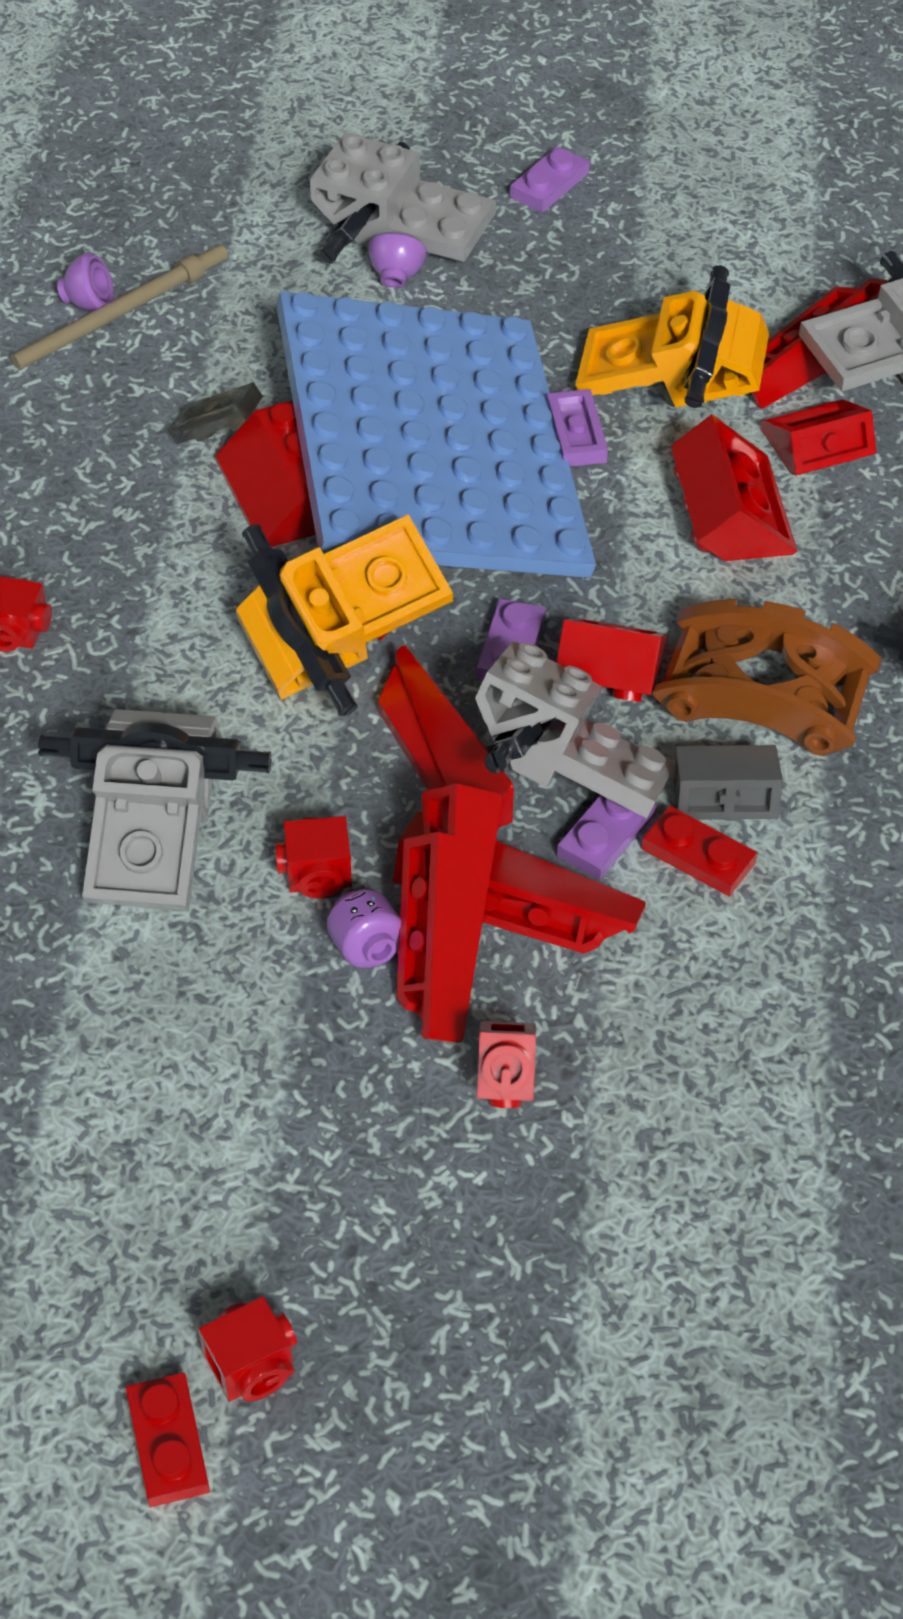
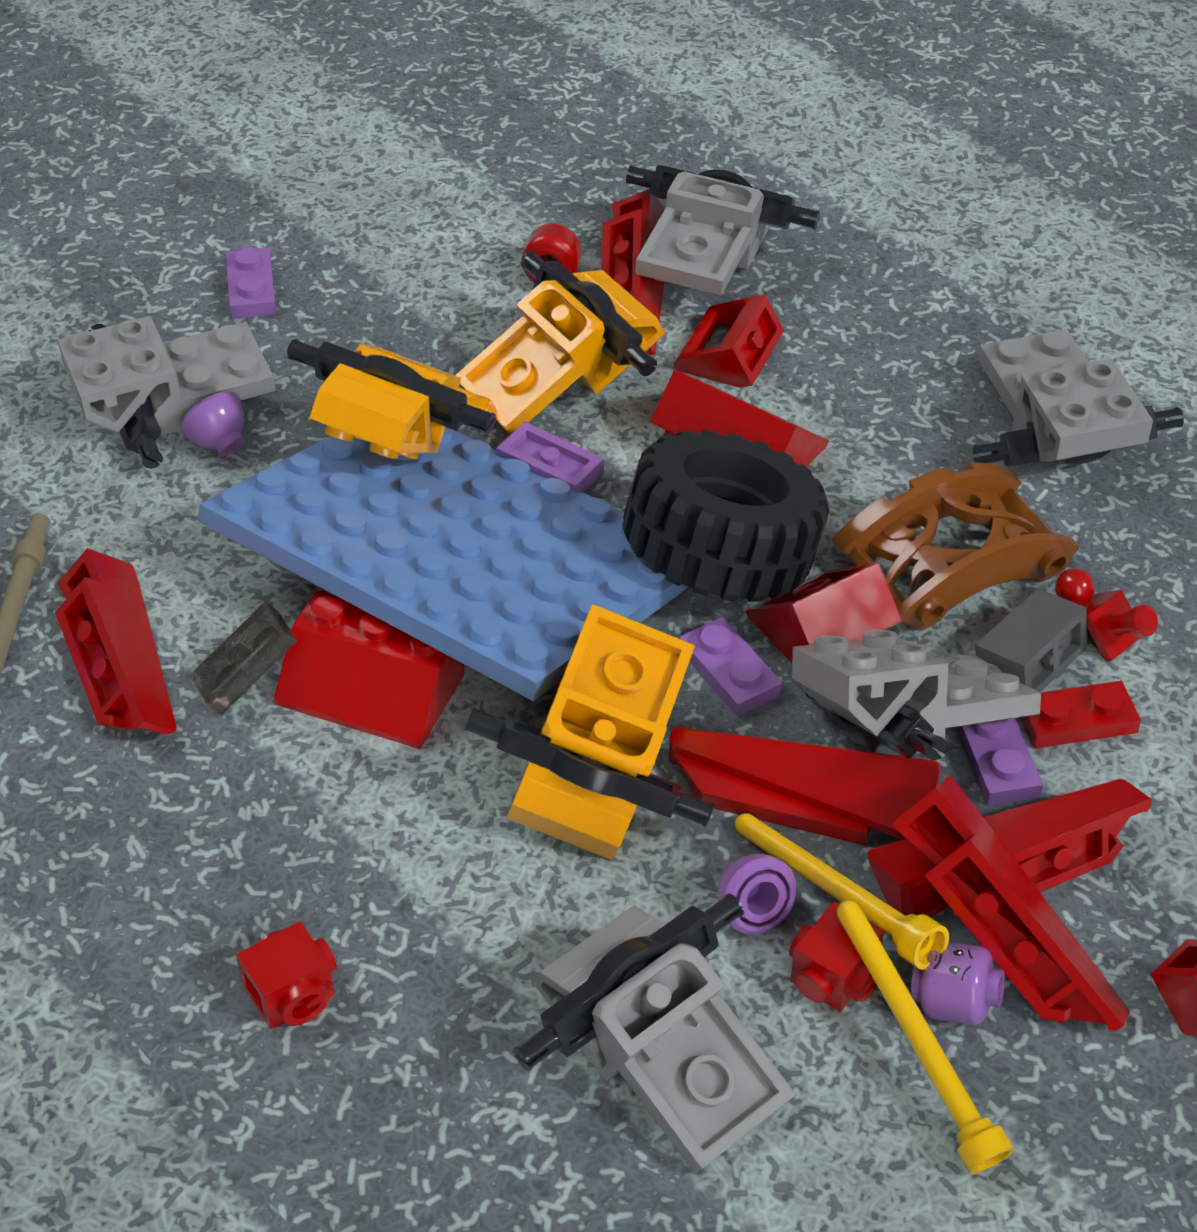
camera: 45 degrees left, 5 degrees down
(170, 354) = (114, 644): none -> red wedge
(252, 1022) = (980, 1140): none -> yellow piece
(319, 780) = (763, 888): none -> medium lavender brick
(355, 868) = (911, 933): none -> yellow piece
(484, 307) = (388, 399): none -> light orange piece
(590, 568) = (725, 515): none -> black tyre
(771, 287) = (554, 243): none -> red head
(806, 807) = (1109, 614): none -> red piece

